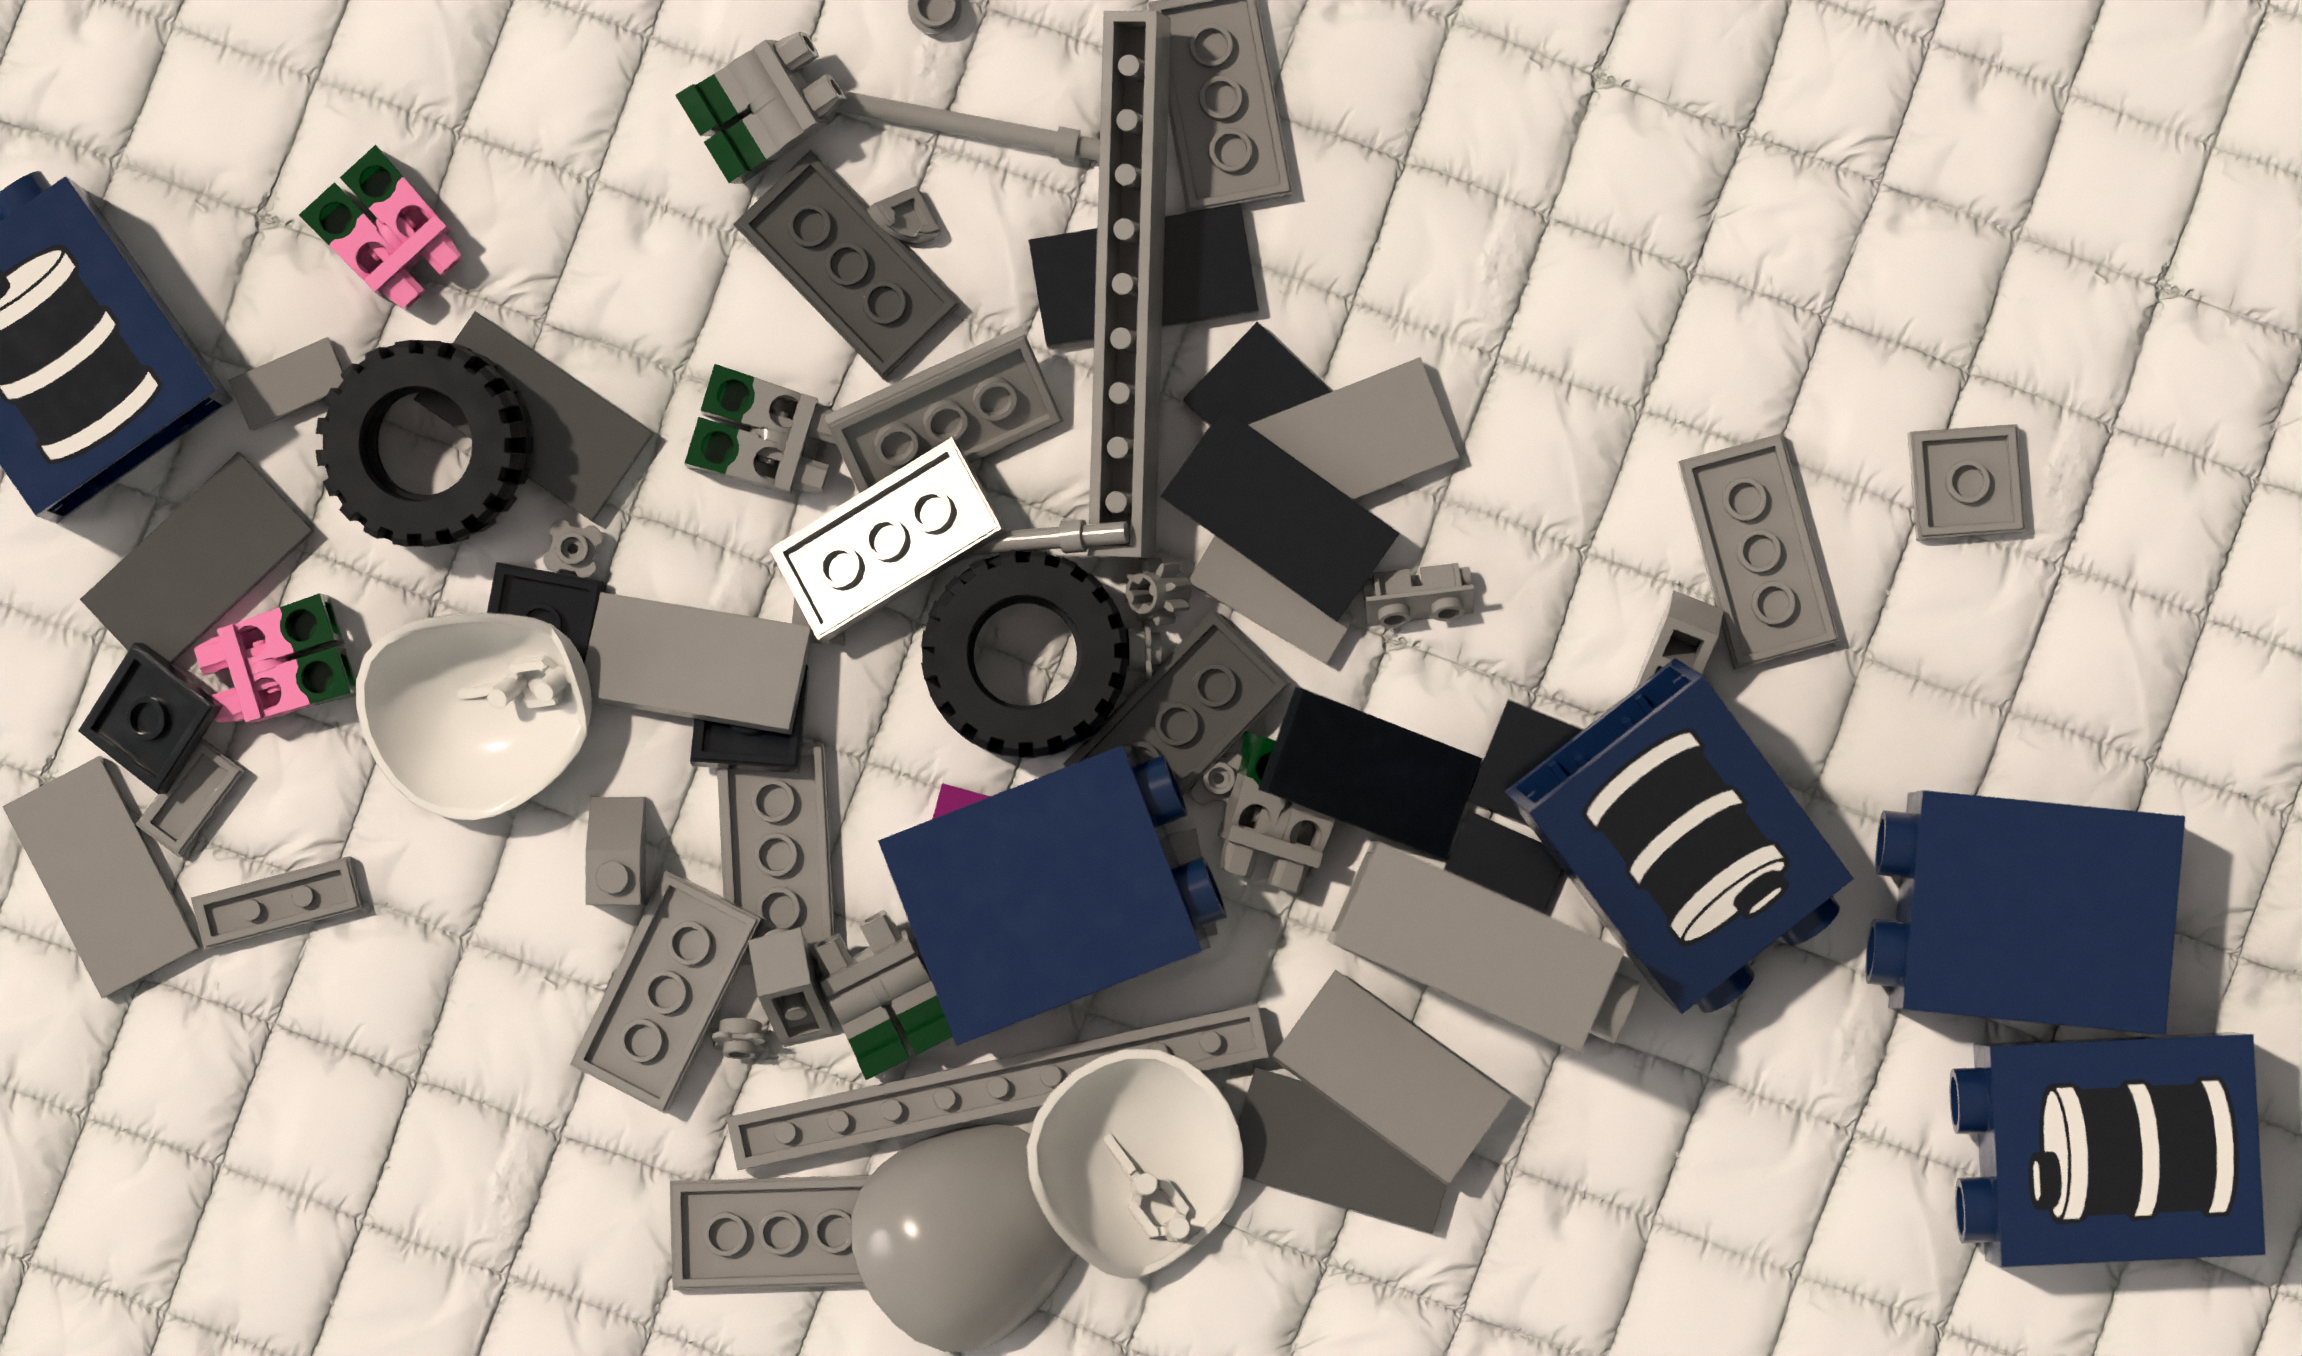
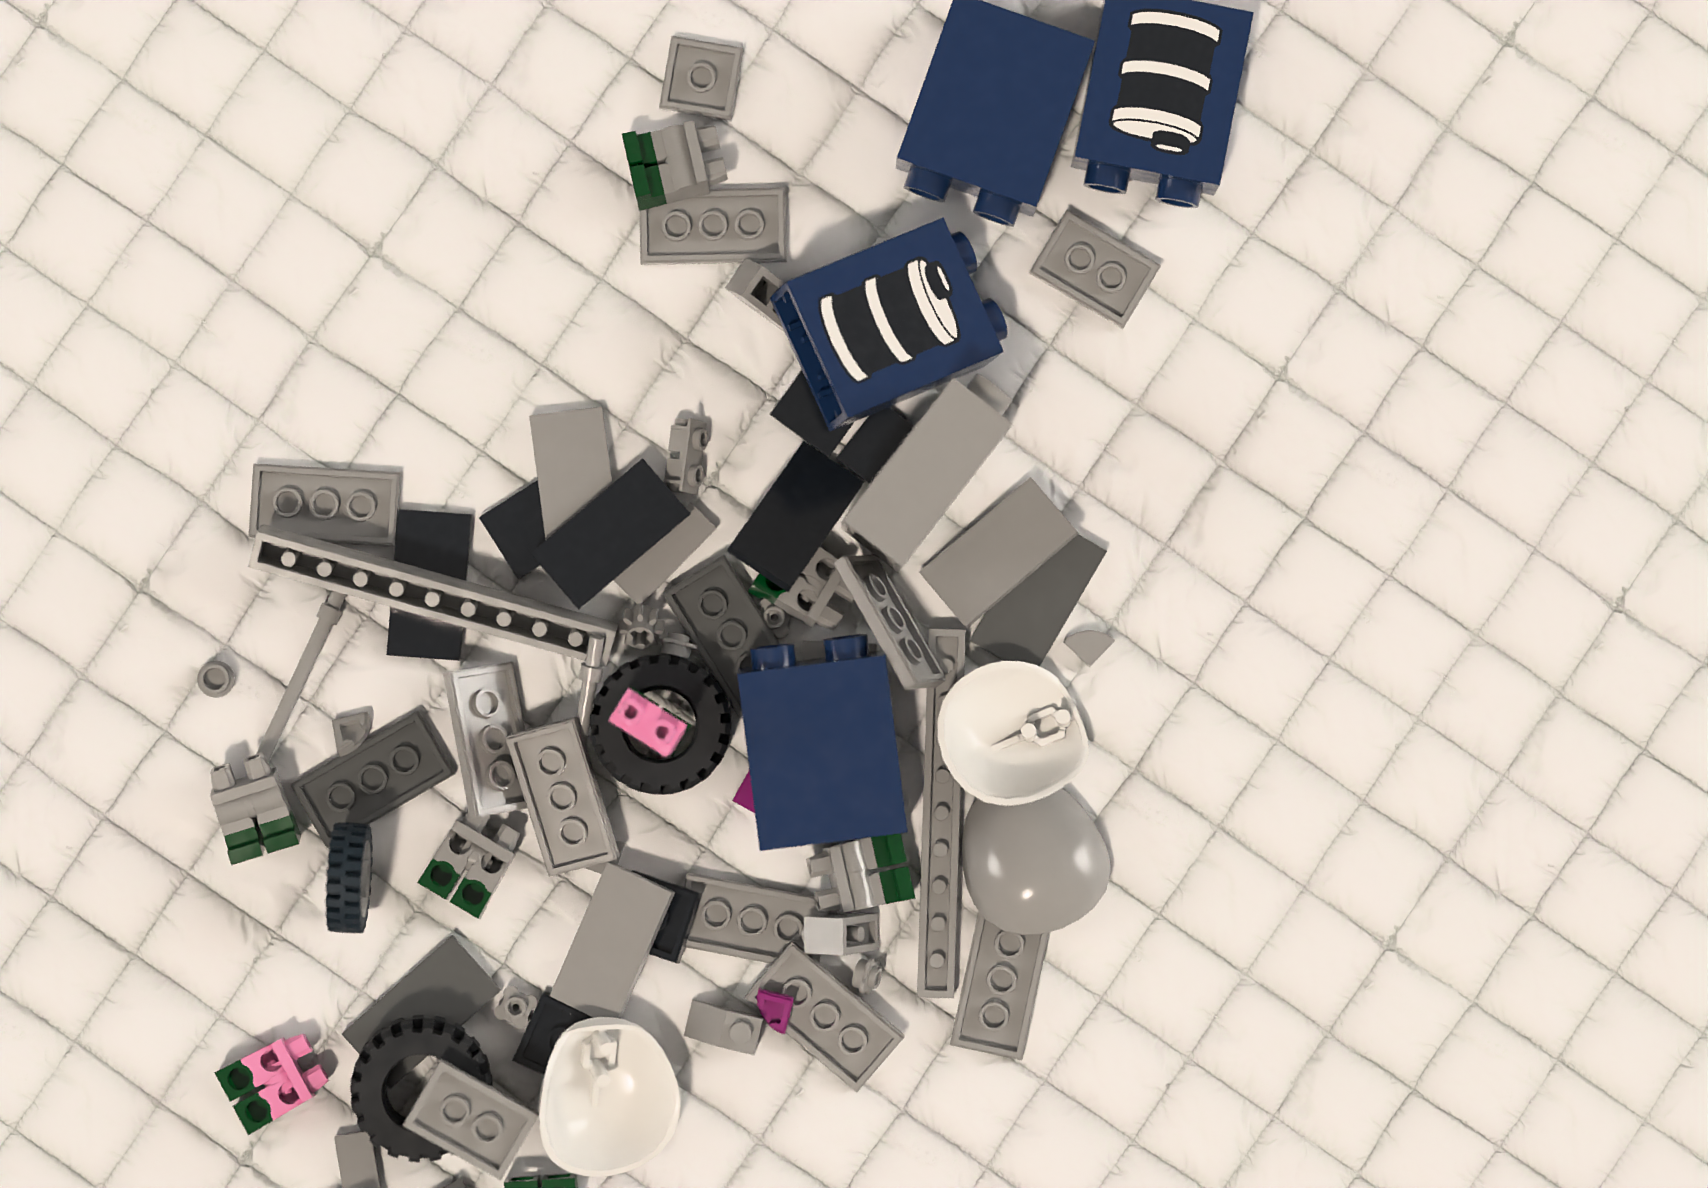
camera: 75 degrees left, 0 degrees up
(394, 523) = (470, 1119): none -> light grey plate
(659, 918) = (775, 1008): none -> magenta tile
(697, 265) = (349, 877): none -> black wheel
(1017, 641) = (649, 723): none -> bright pink hips
(1253, 946) = (890, 621): none -> light grey tile
(1291, 1240) = (1089, 645): none -> light grey tile
(1830, 467) = (670, 163): none -> light grey hips
(1834, 1115) = (1095, 269): none -> light grey tile

